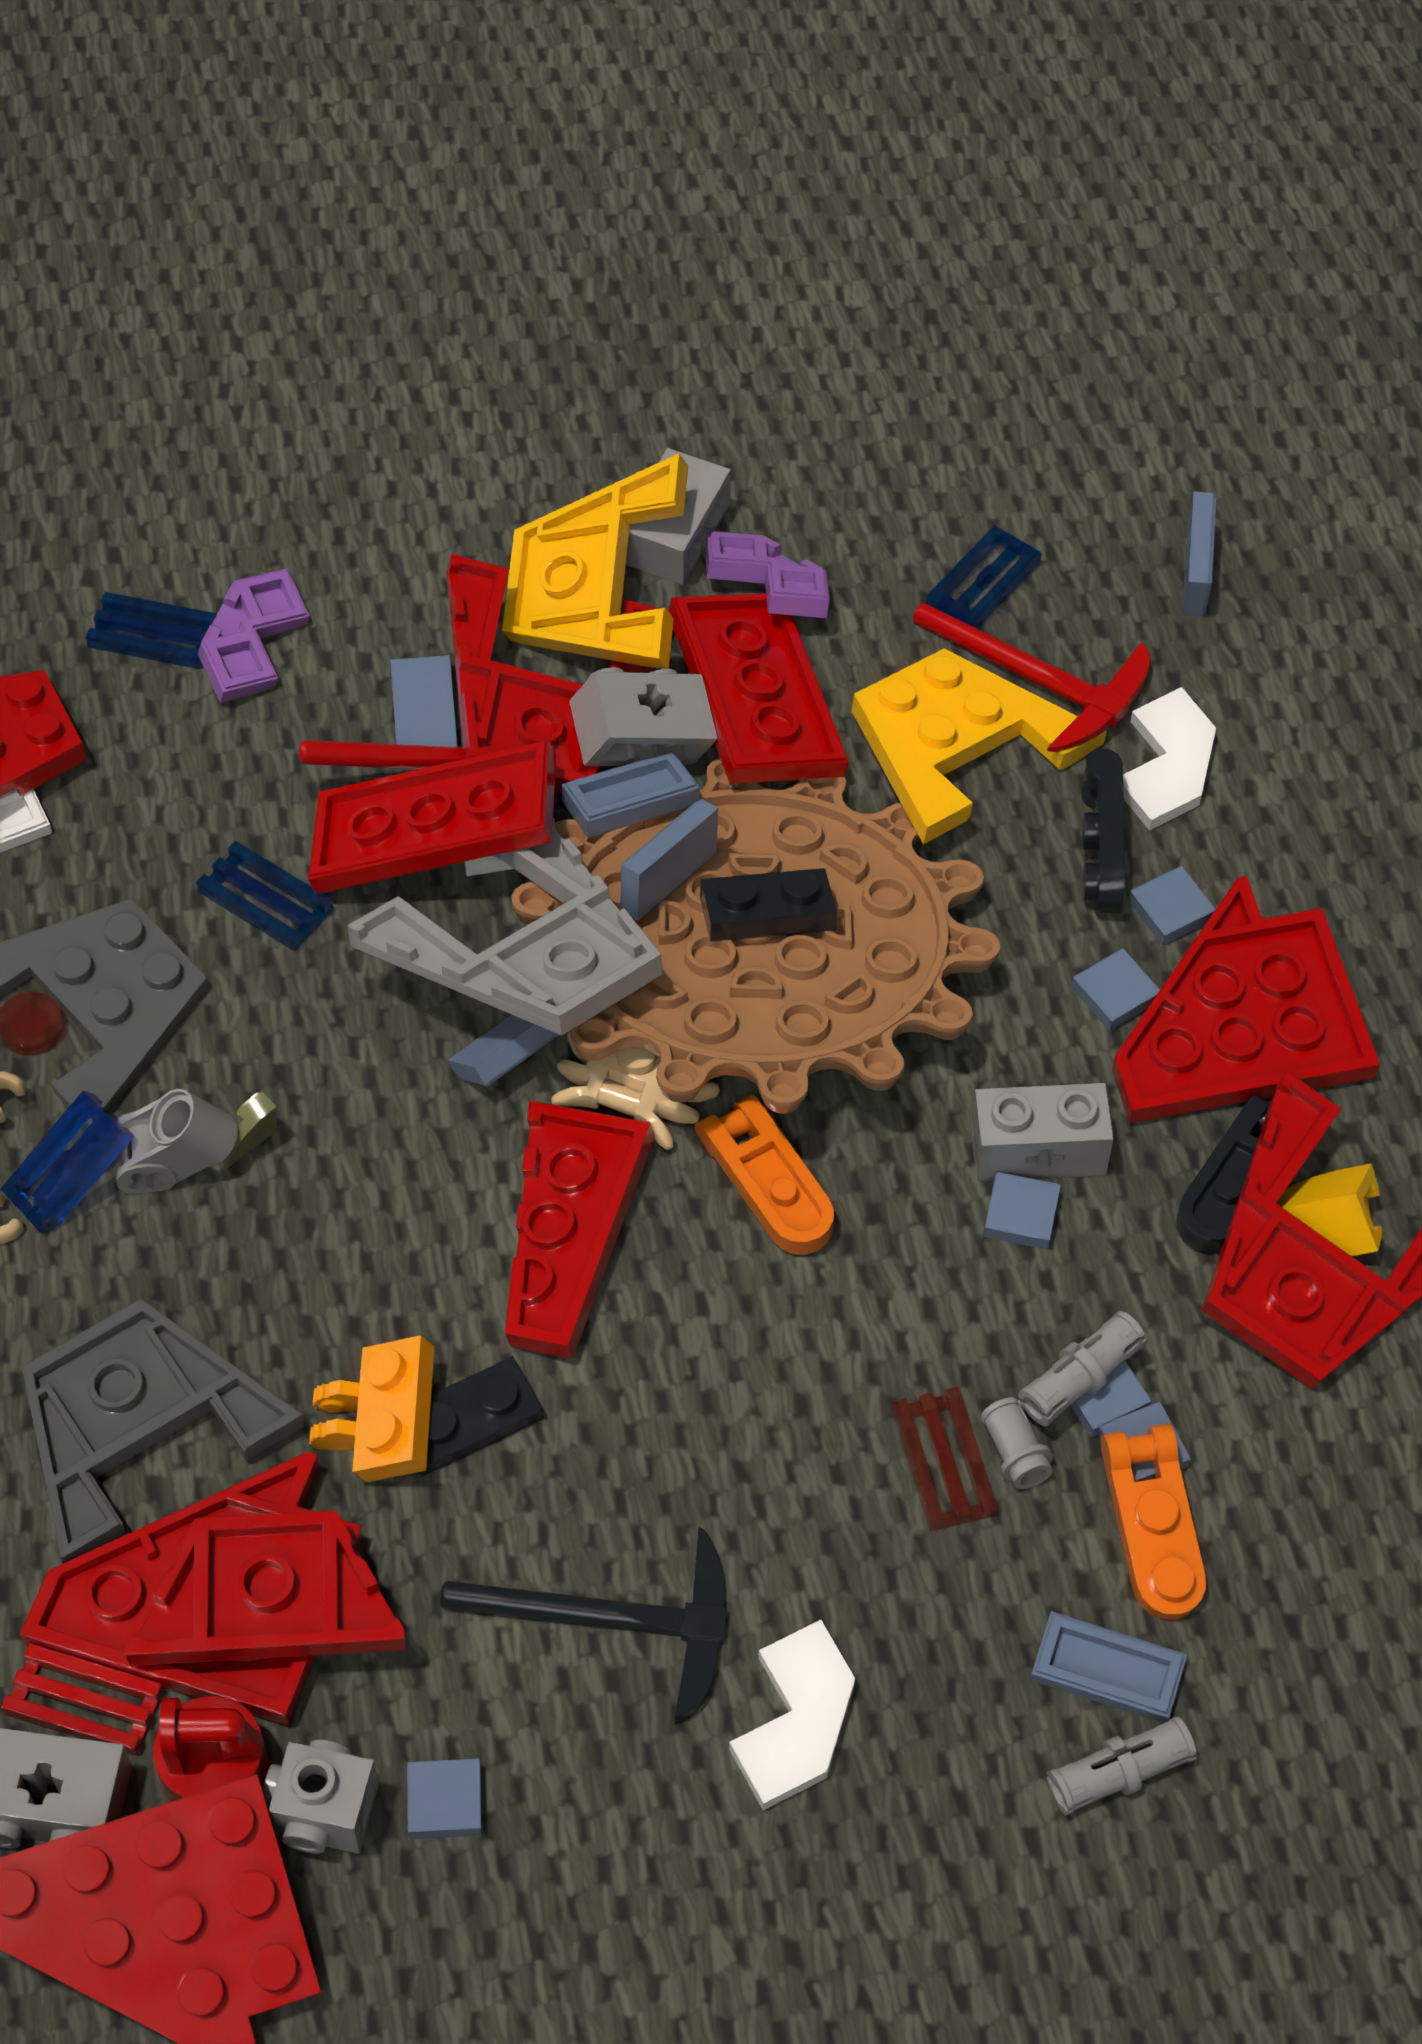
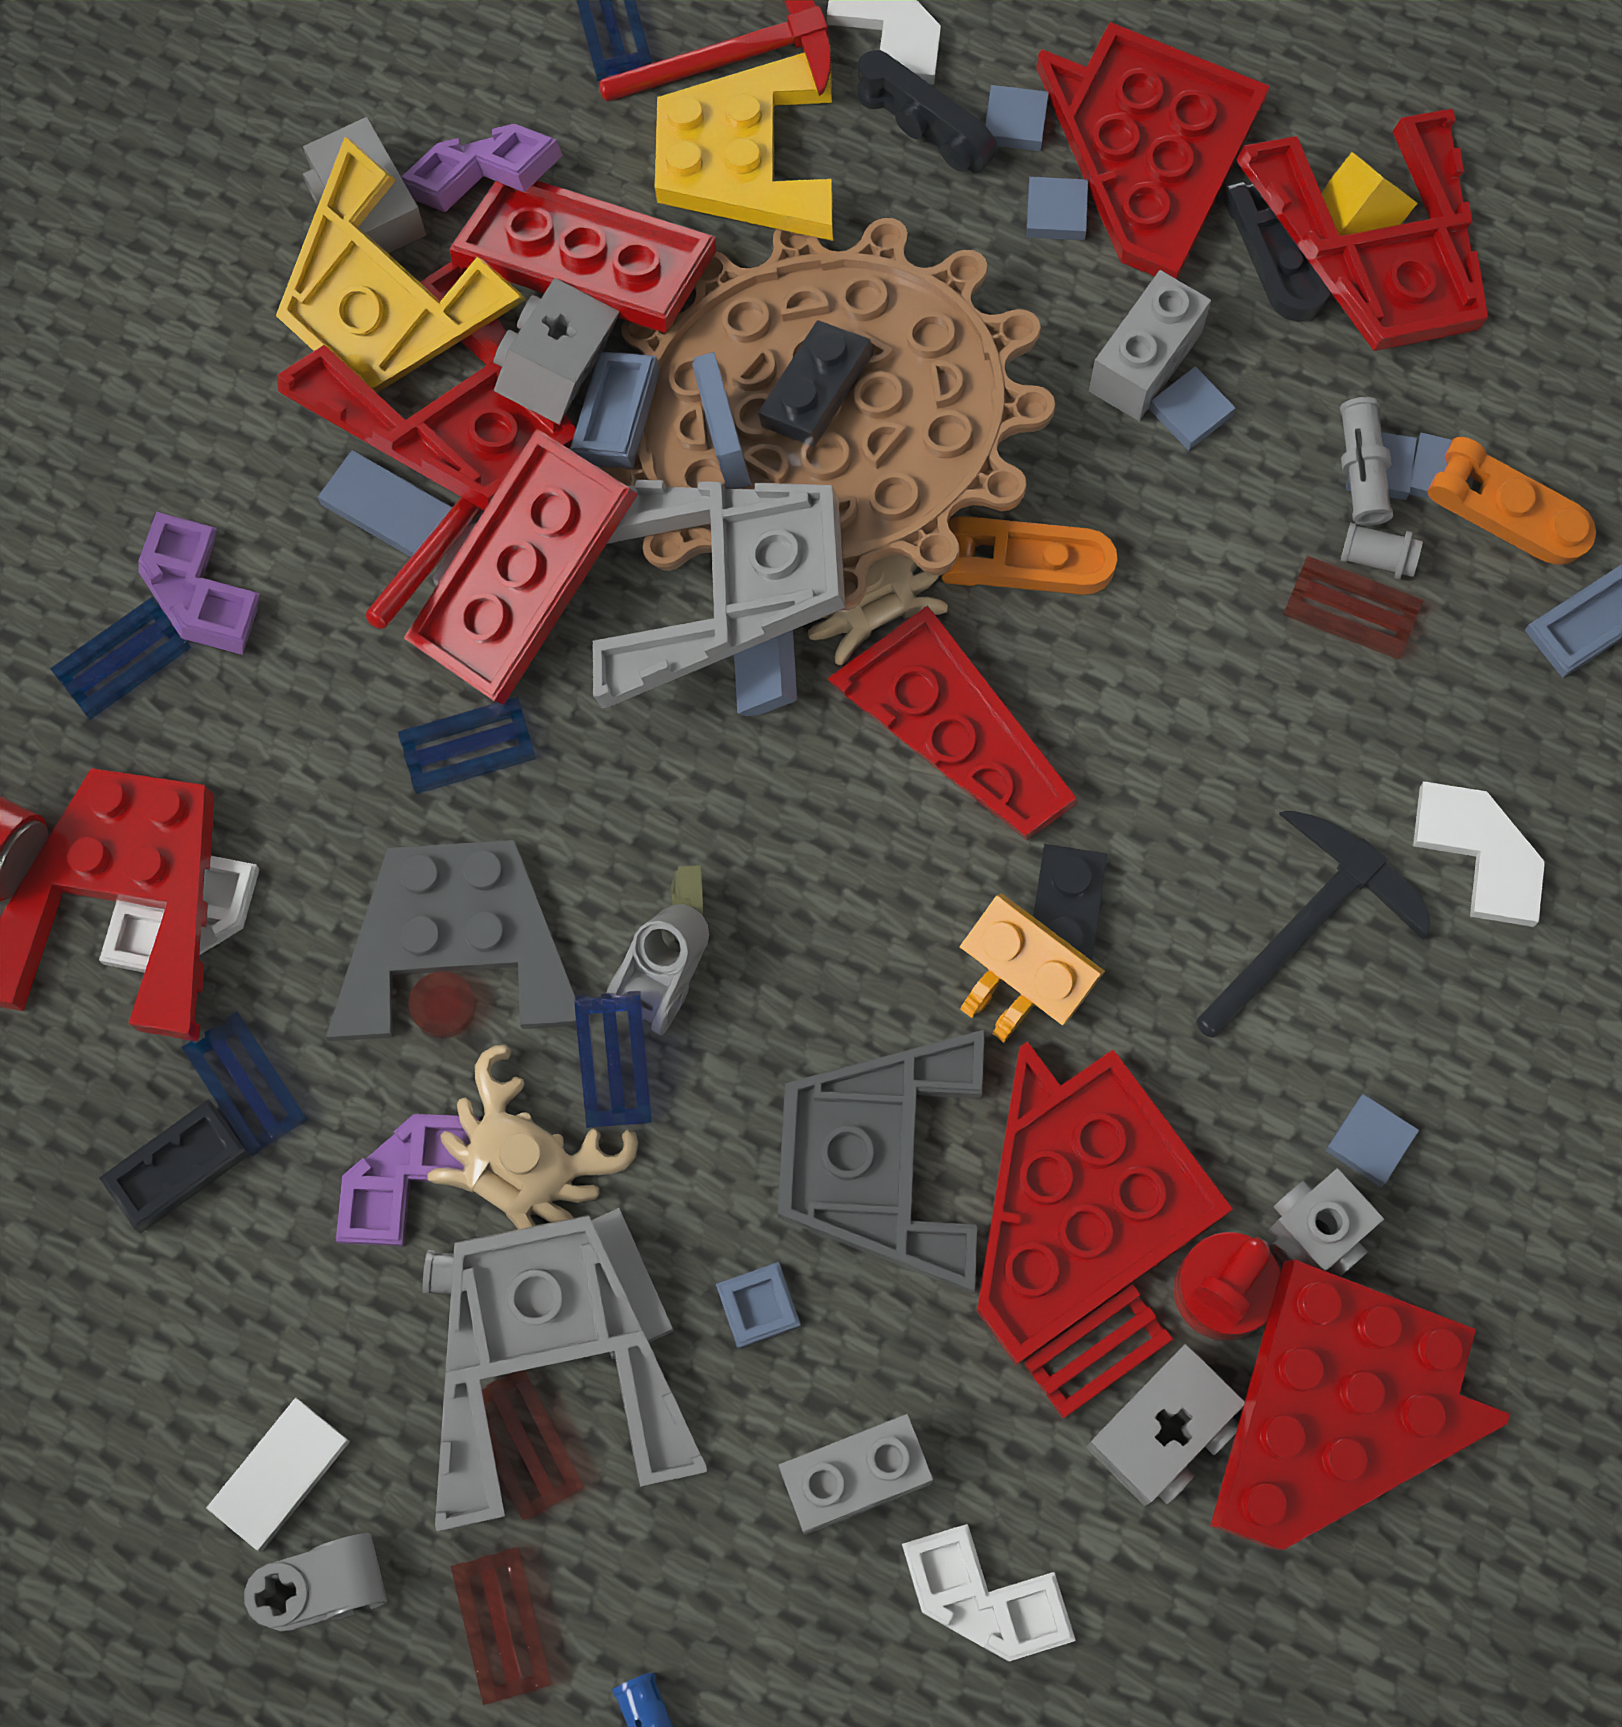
camera: 50 degrees left, 15 degrees up
(266, 1593) = (1131, 1156): red wing -> none

